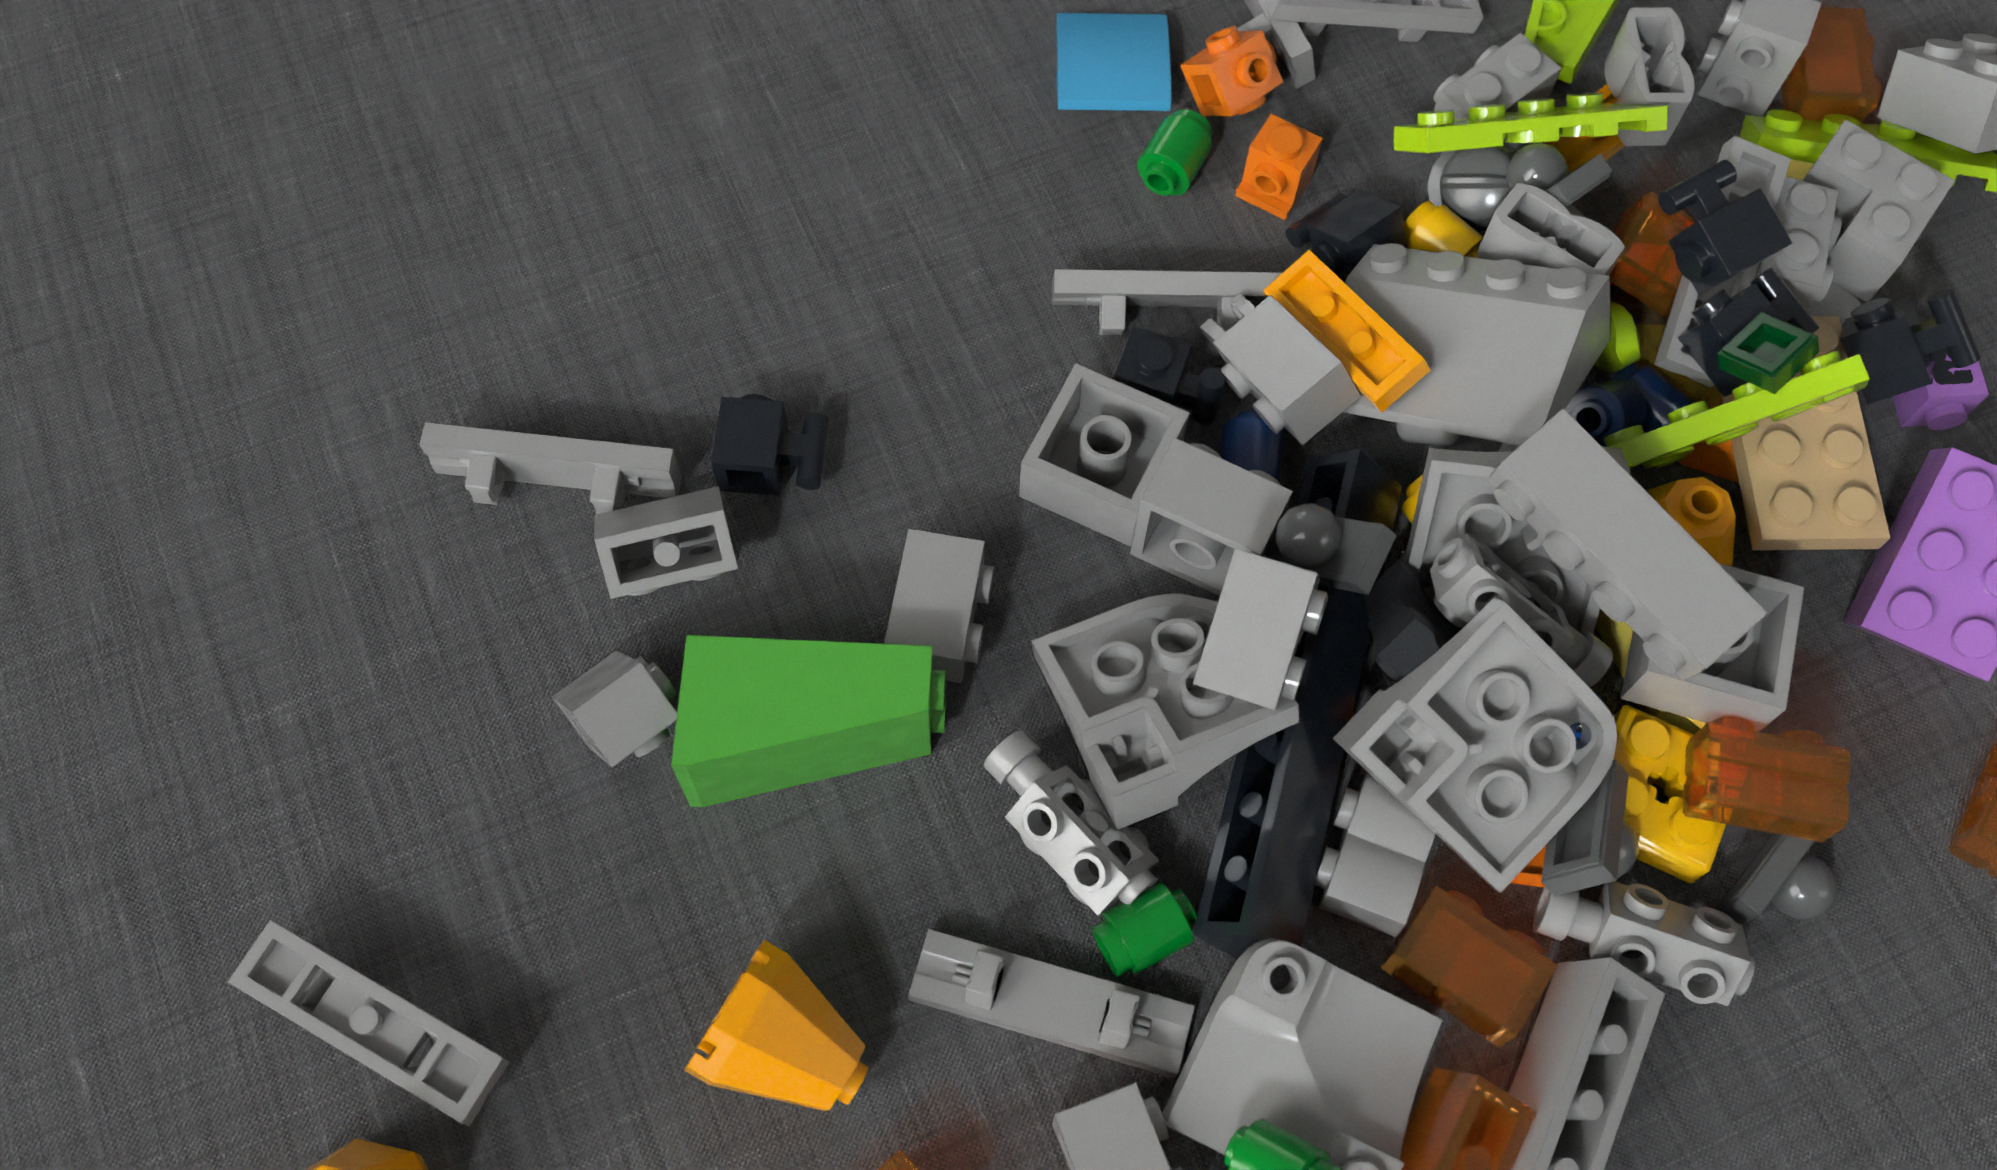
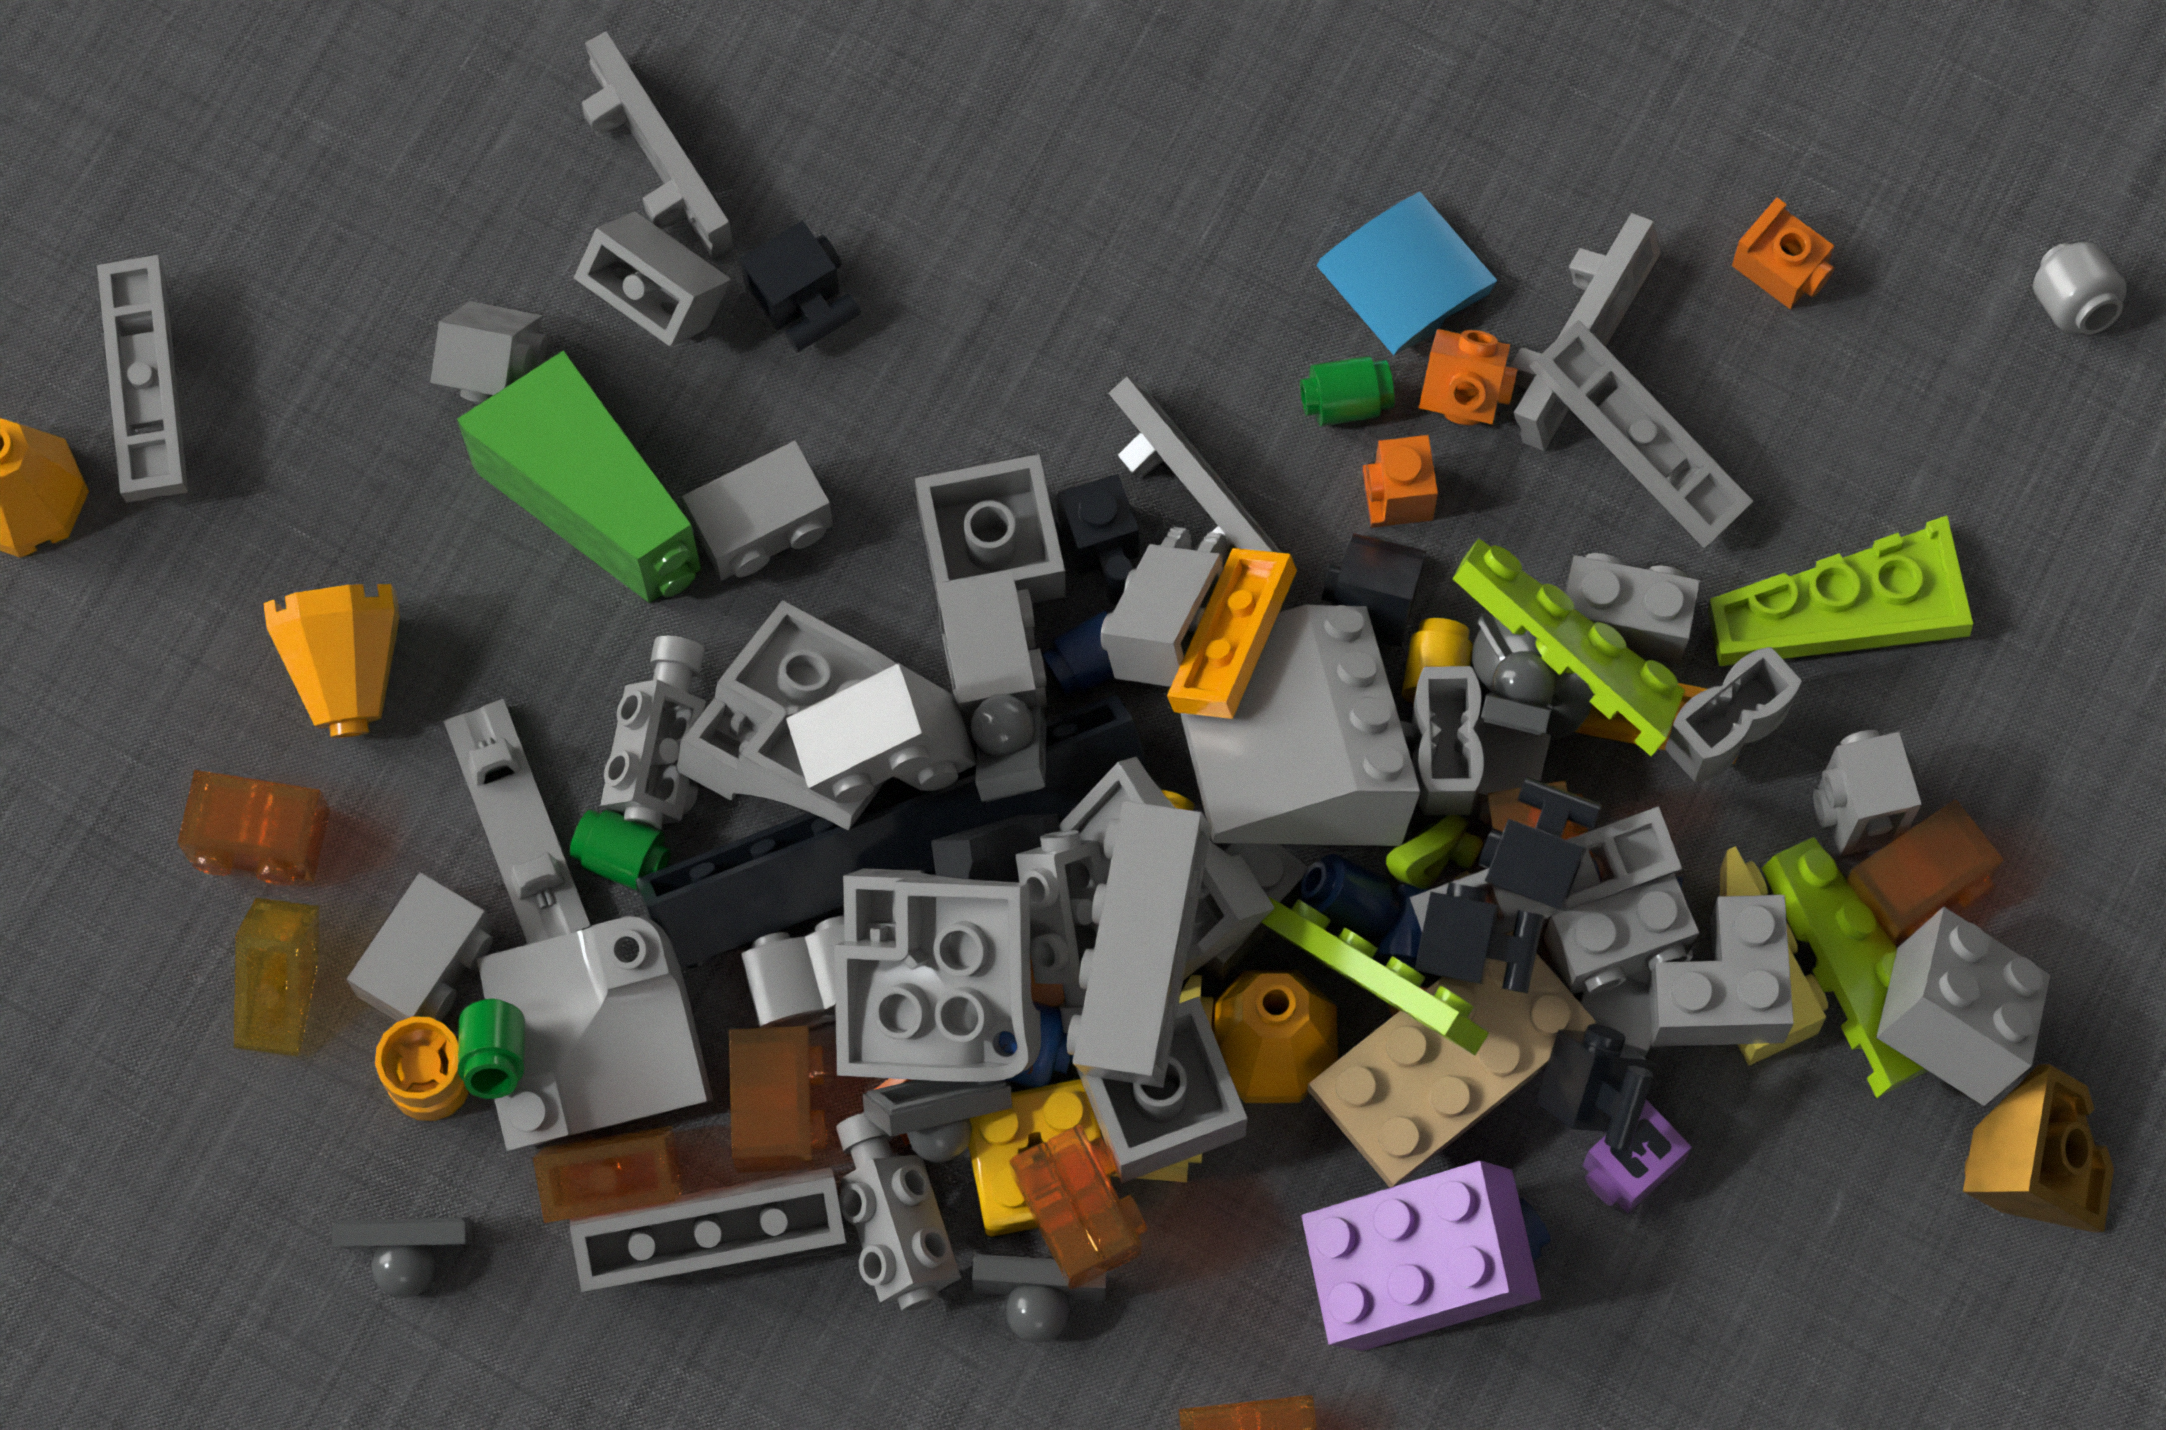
camera: 55 degrees right, 5 degrees up
(1768, 352) = (1425, 951): dark green tile -> none

